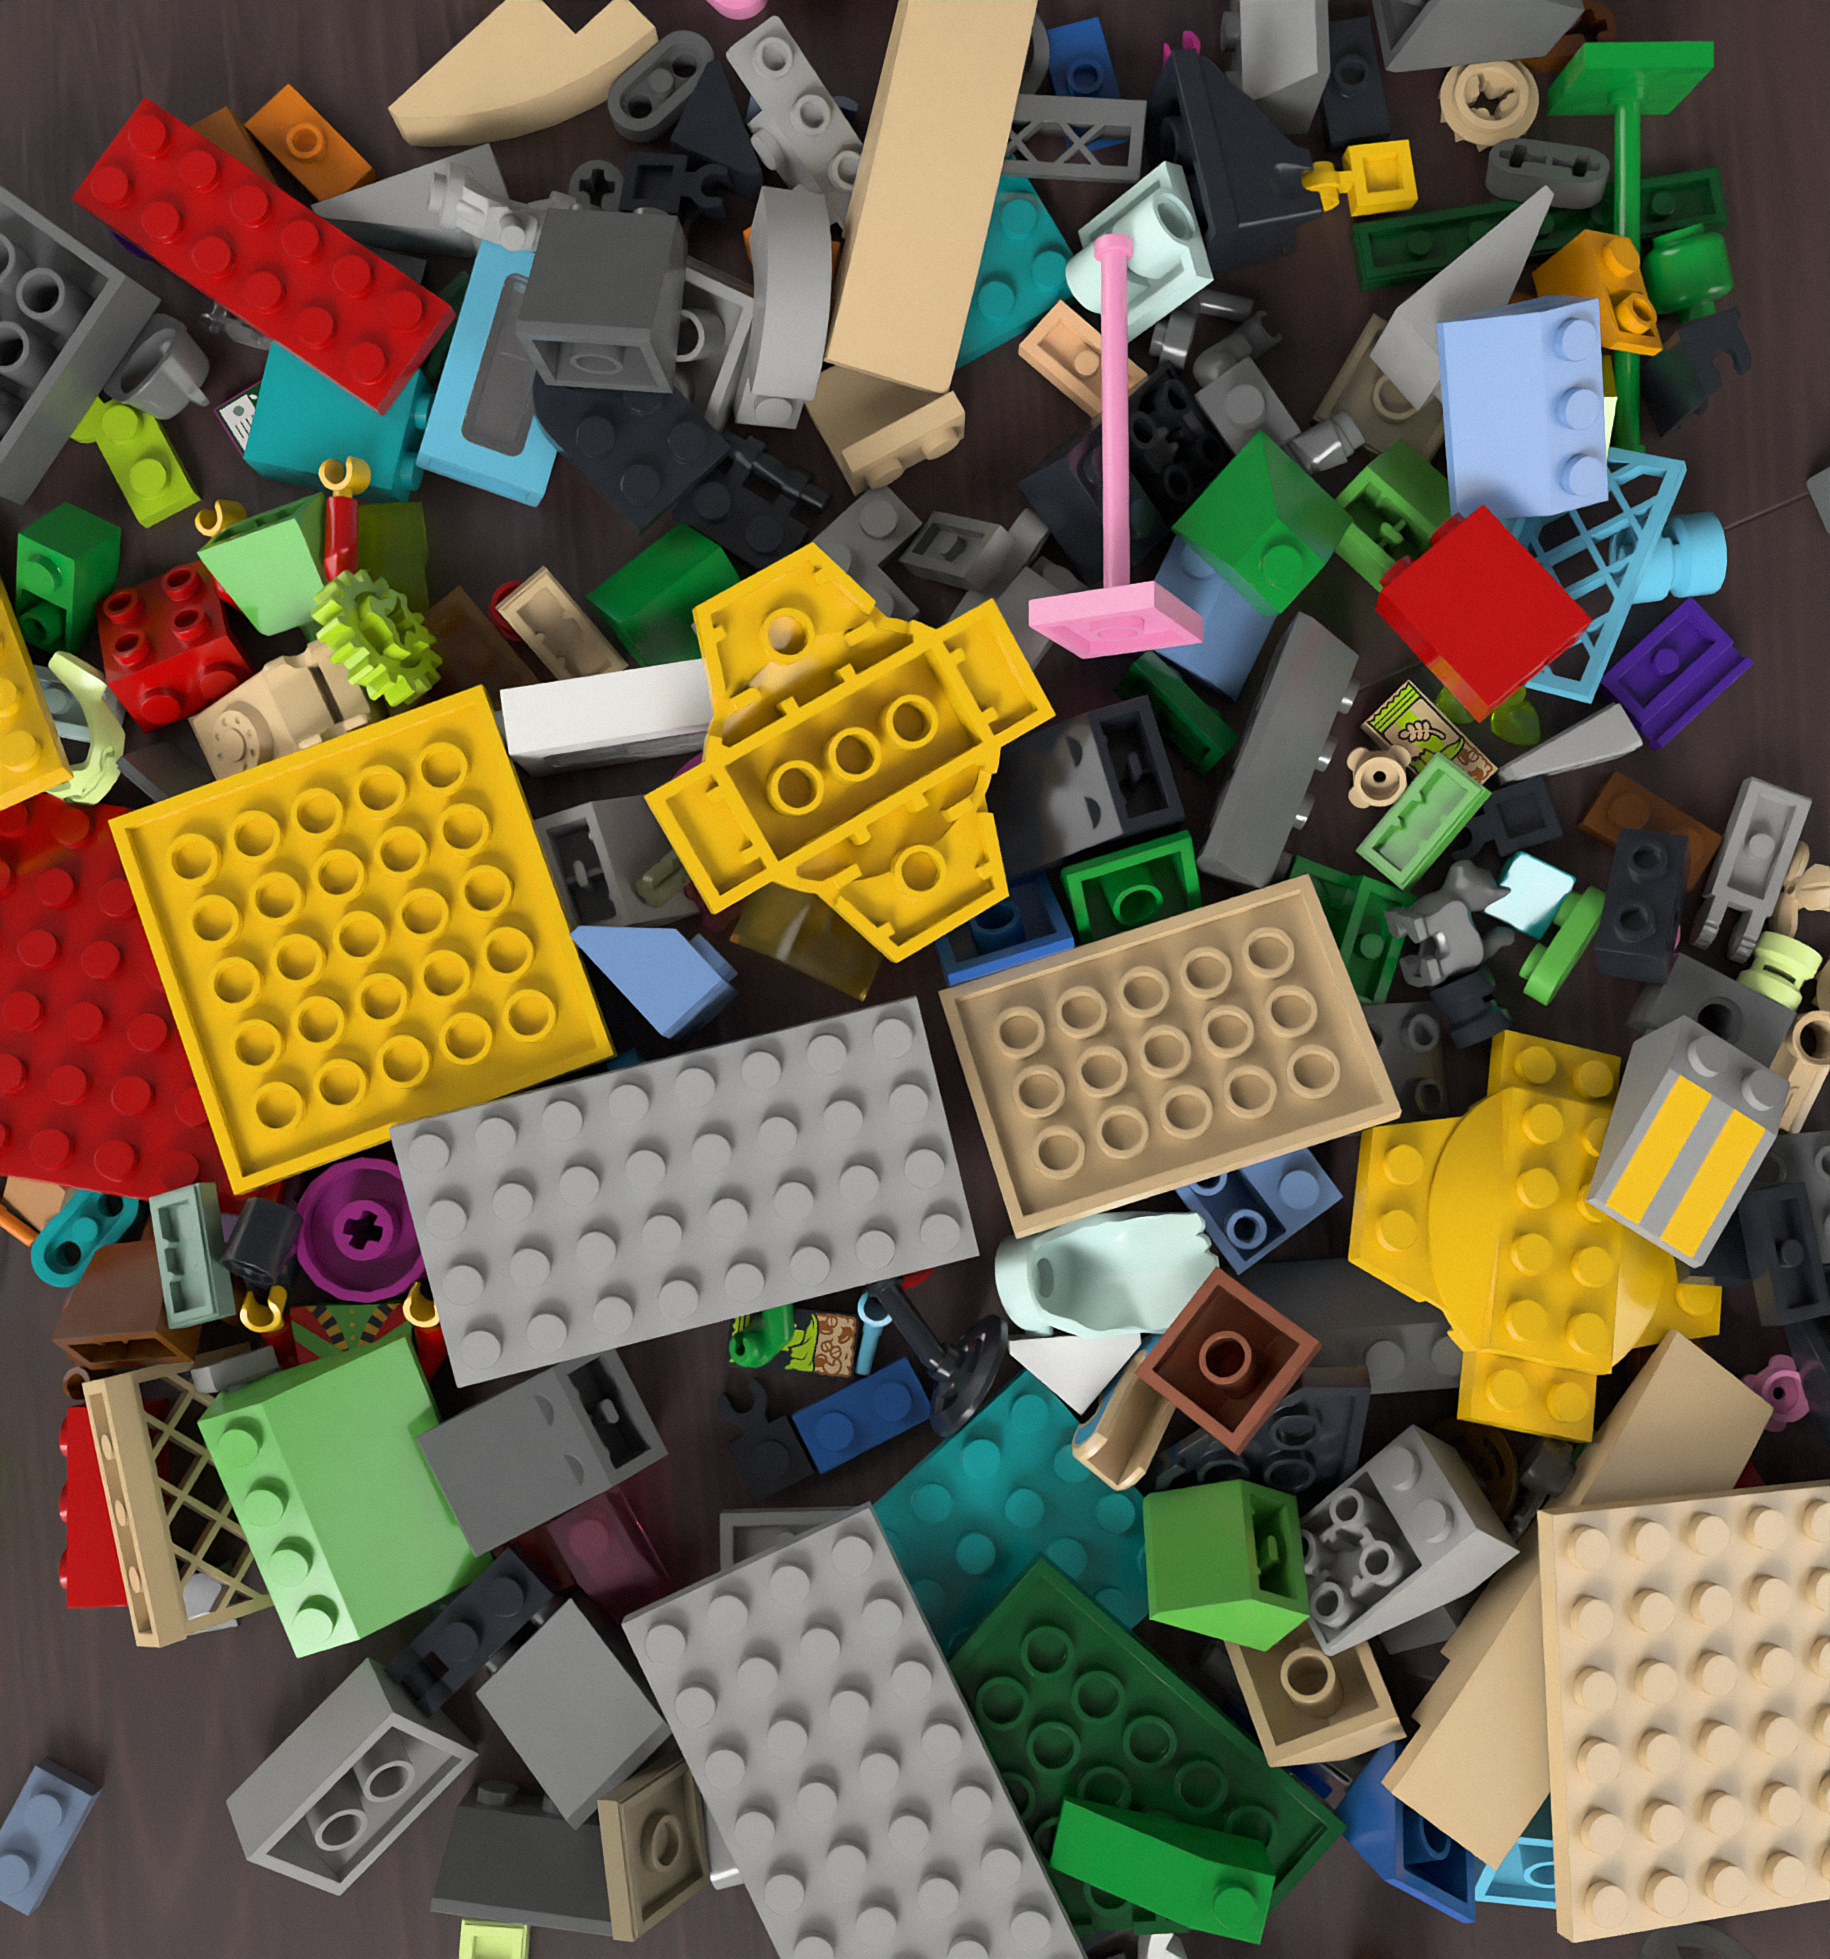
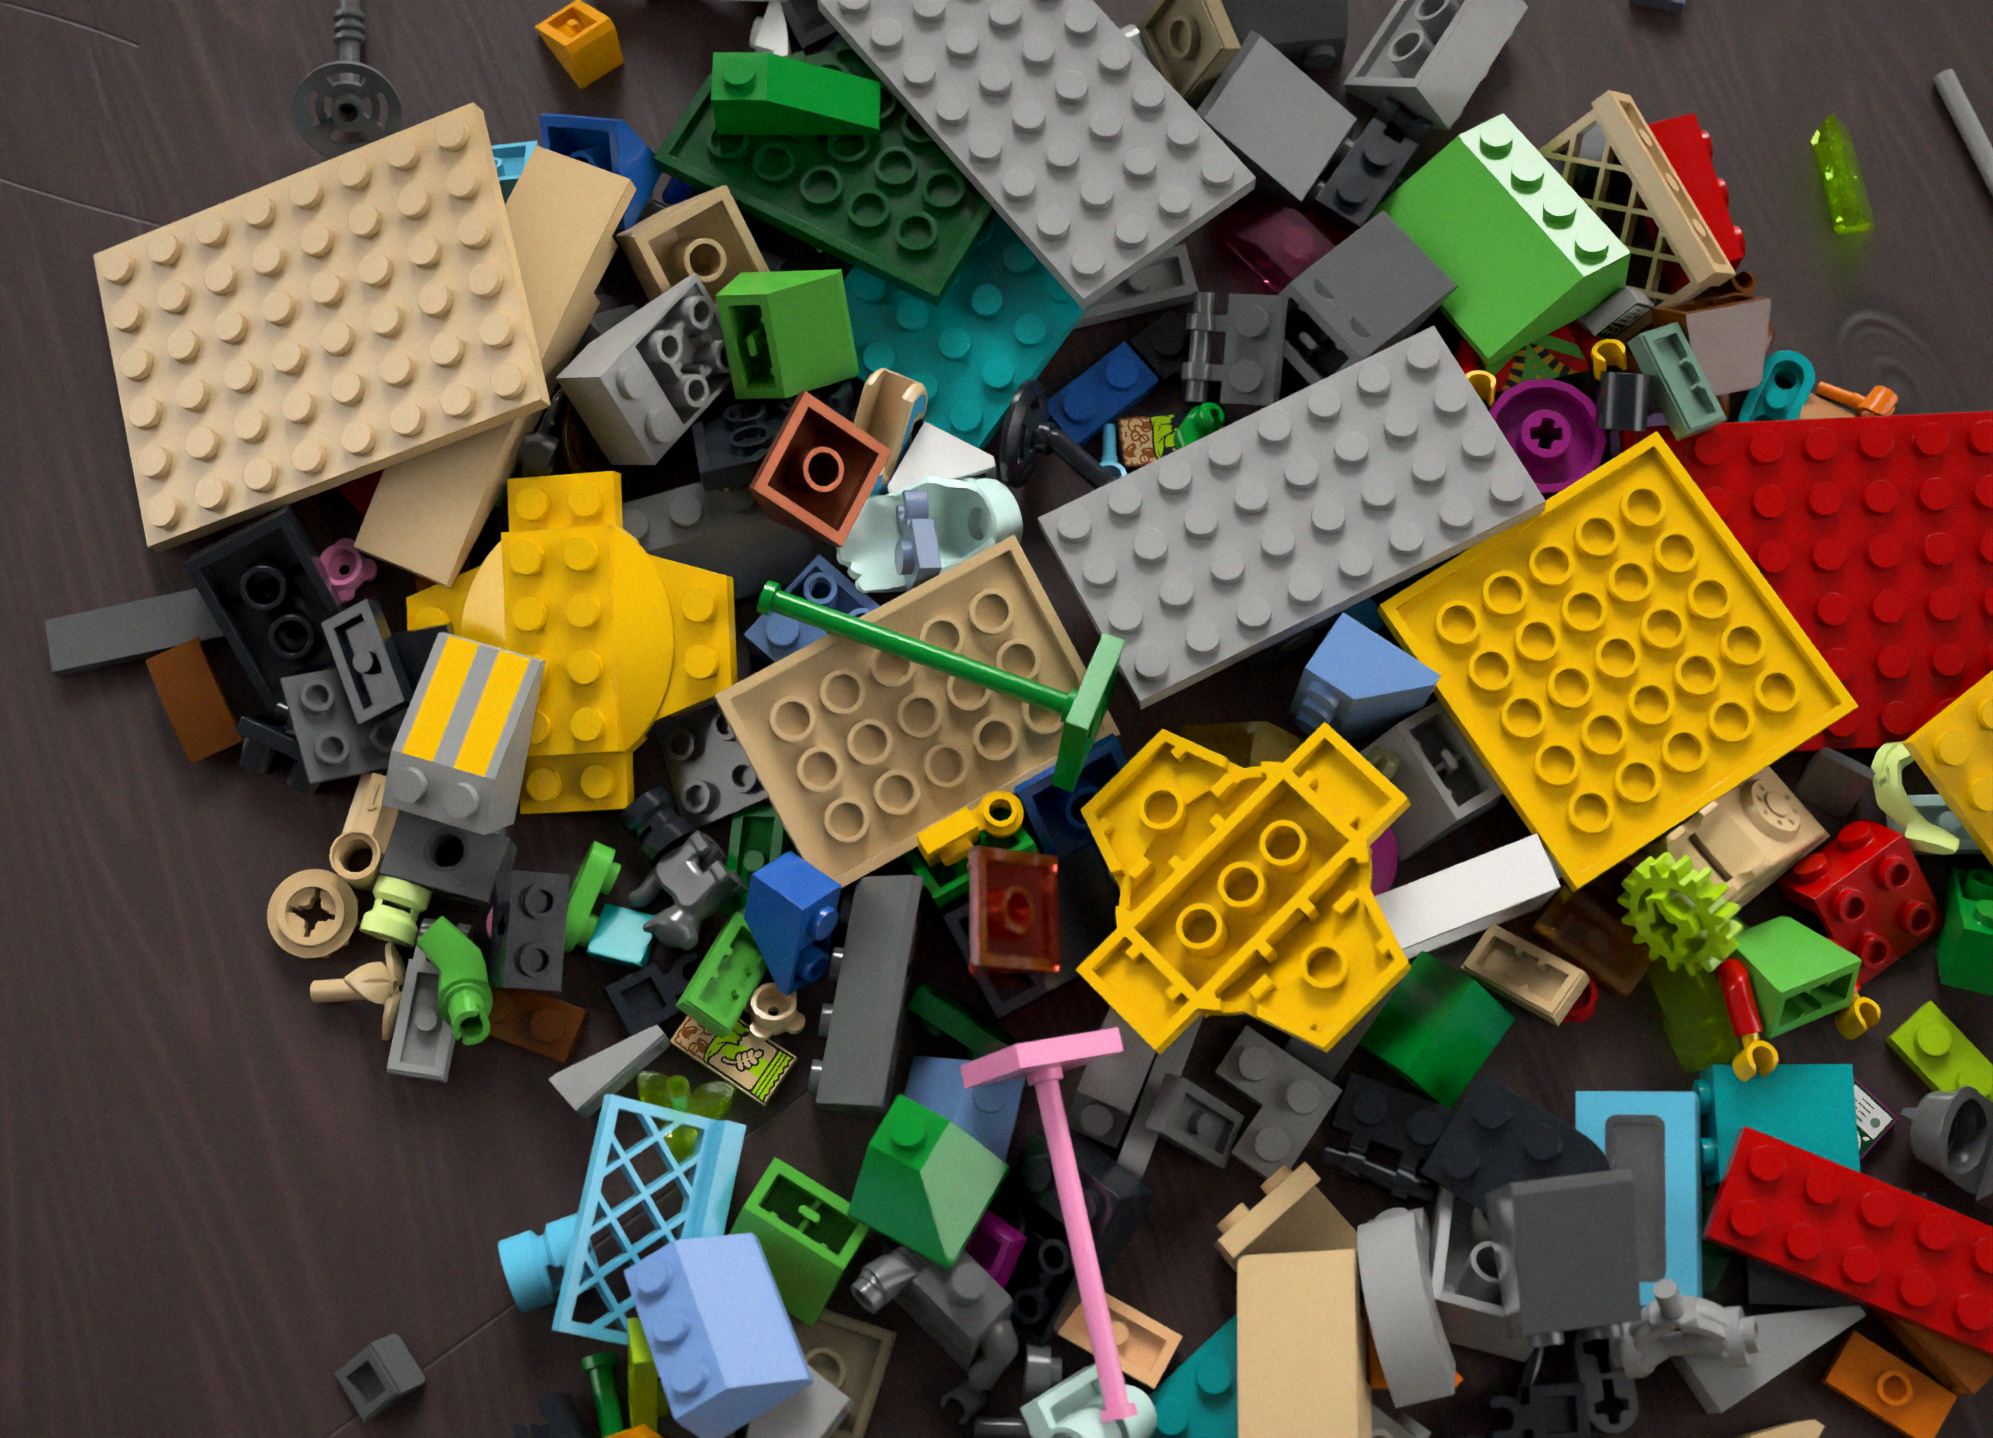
camera: 165 degrees right, 10 degrees down
(677, 1416) = (1251, 351): none -> dark grey plate
(991, 999) = (1079, 710): none -> green tile
(1113, 793) = (1012, 911): none -> clear red slope
(1128, 1242) = (918, 552): none -> sand blue plate
(1154, 902) = (953, 836): none -> yellow plate
(1199, 458) = (996, 1247): none -> magenta tile
(1347, 858) = (792, 919): none -> blue slope
(1480, 611) = (722, 1140): red brick -> none
(1673, 673) = (526, 1161): dark purple plate -> none
(1722, 865) = (463, 981): none -> bright green arm

